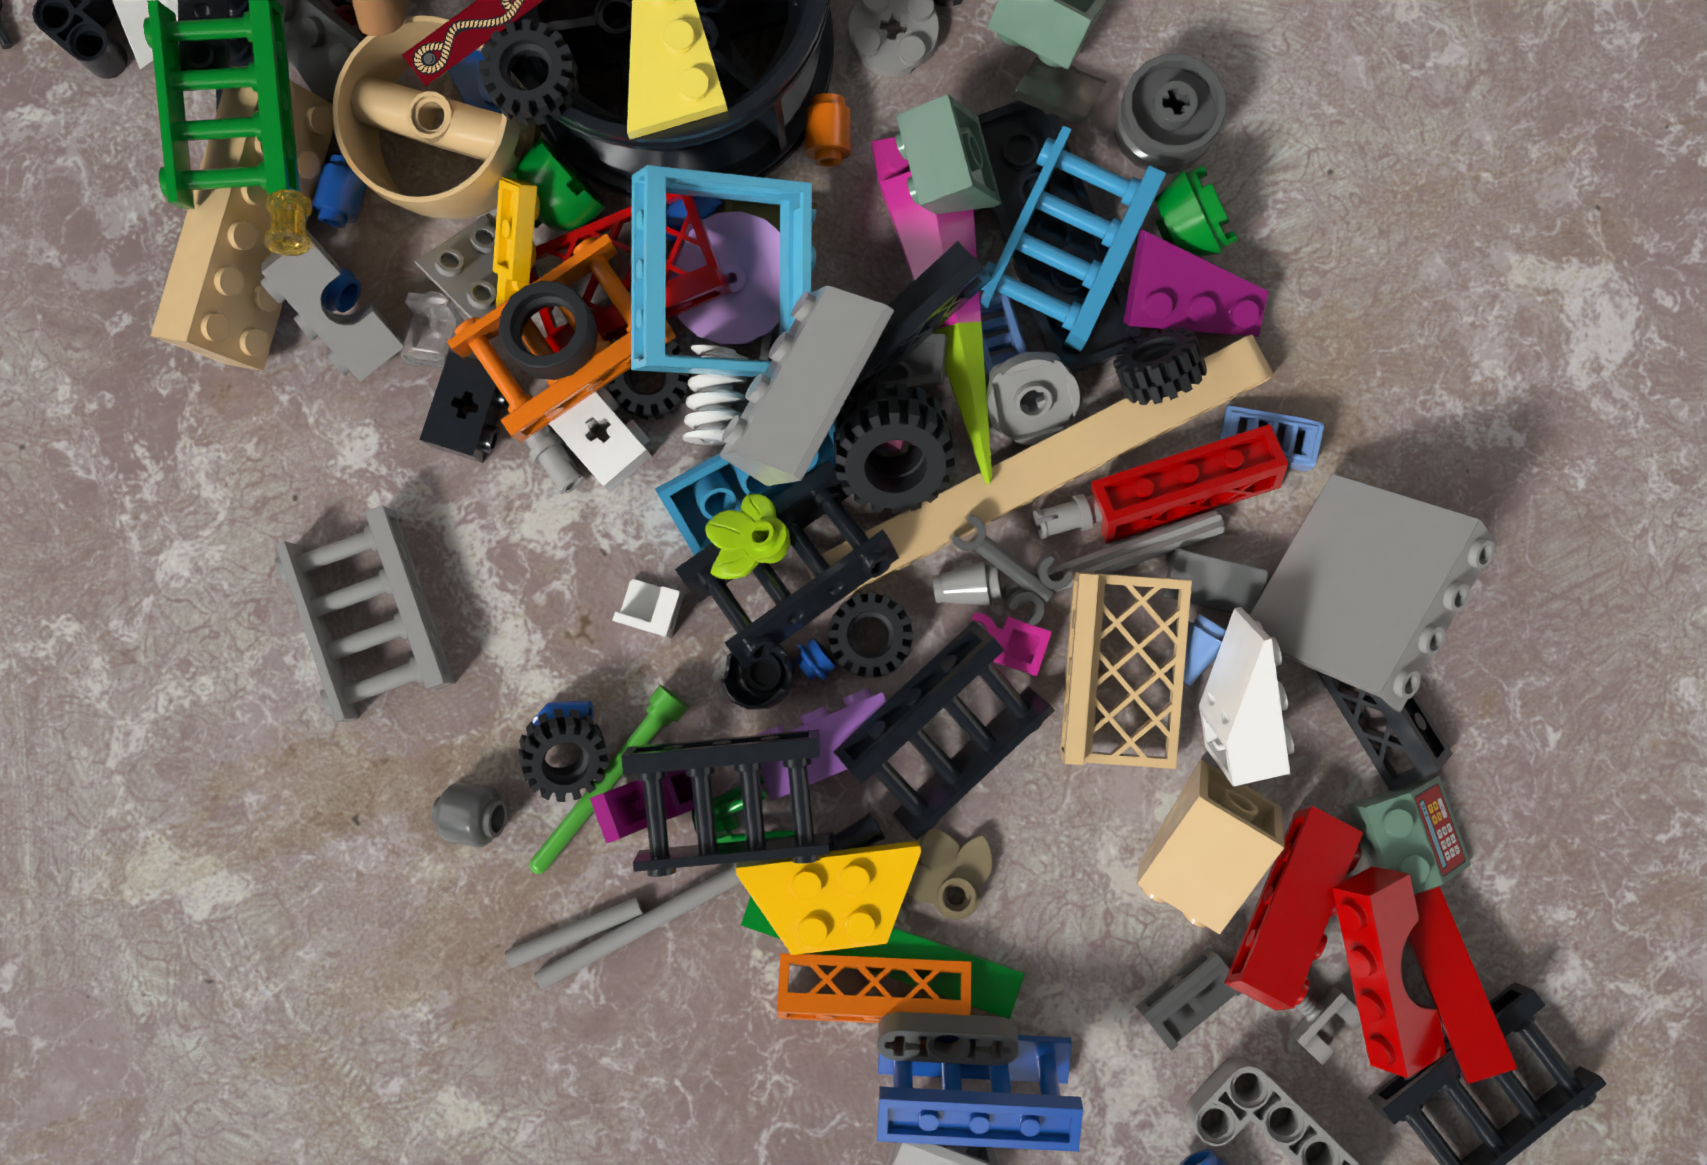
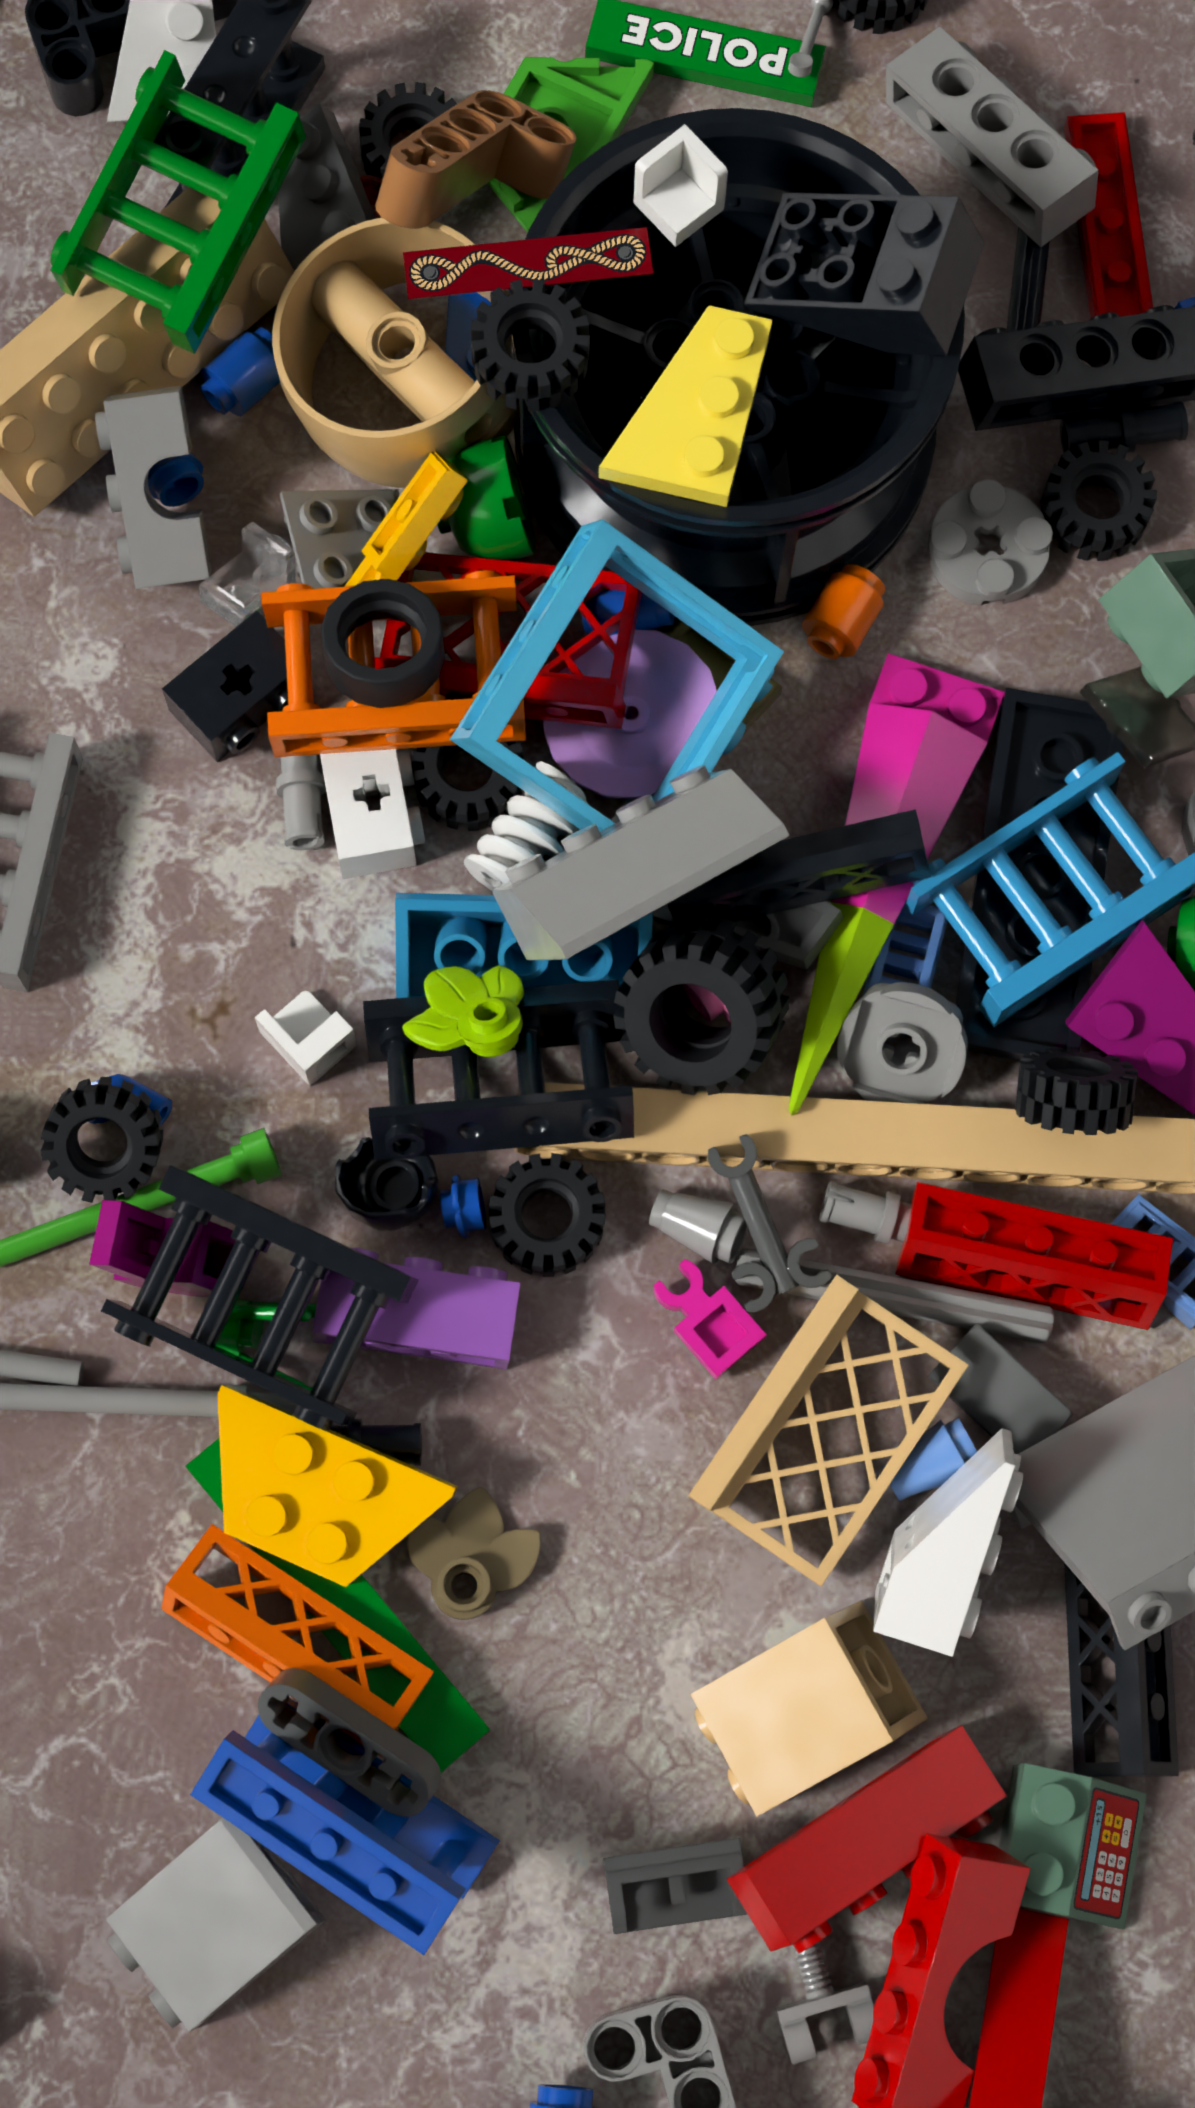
camera: 25 degrees right, 10 degrees down
(275, 236) = (166, 364): clear yellow bush -> none
(917, 703) = (523, 1325): black fence -> none
(946, 157) = (961, 713): sand green slope -> none

